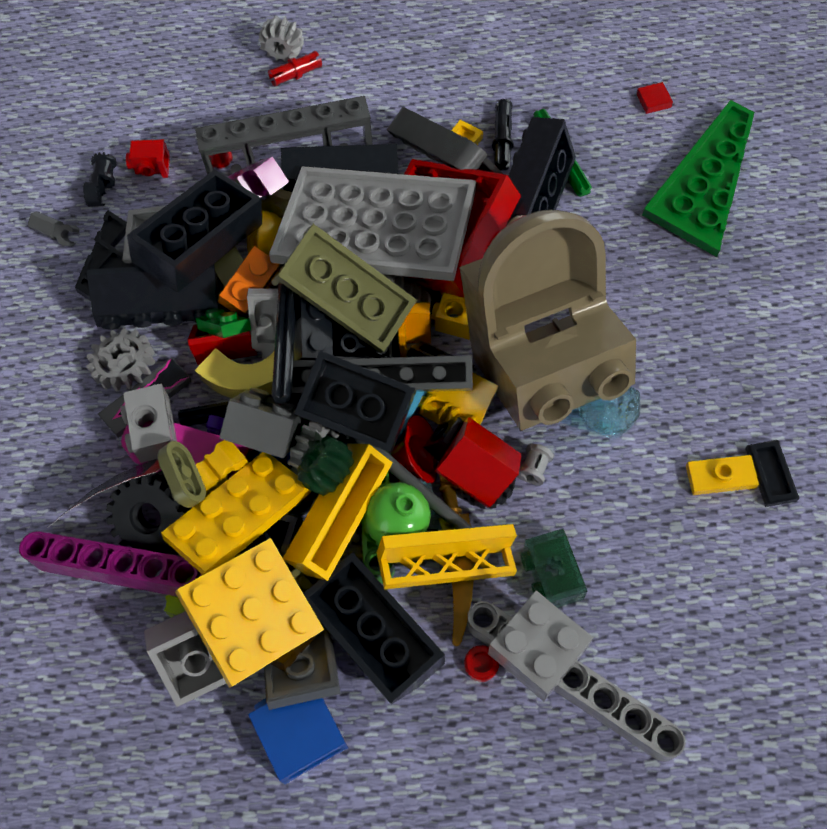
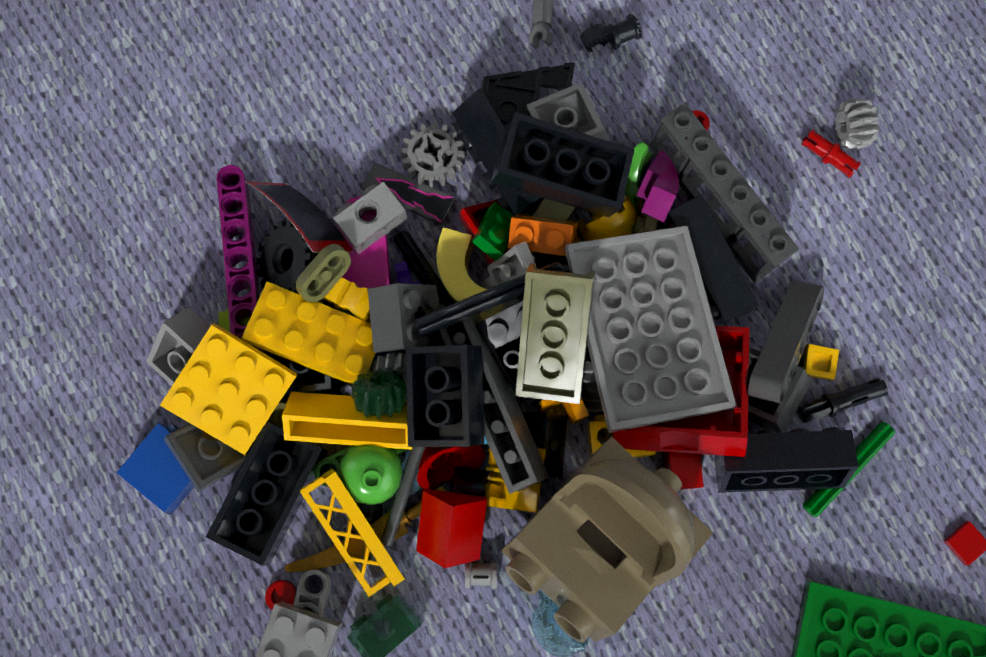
camera: 60 degrees right, 15 degrees up
(148, 157) = (655, 67): red brick -> none

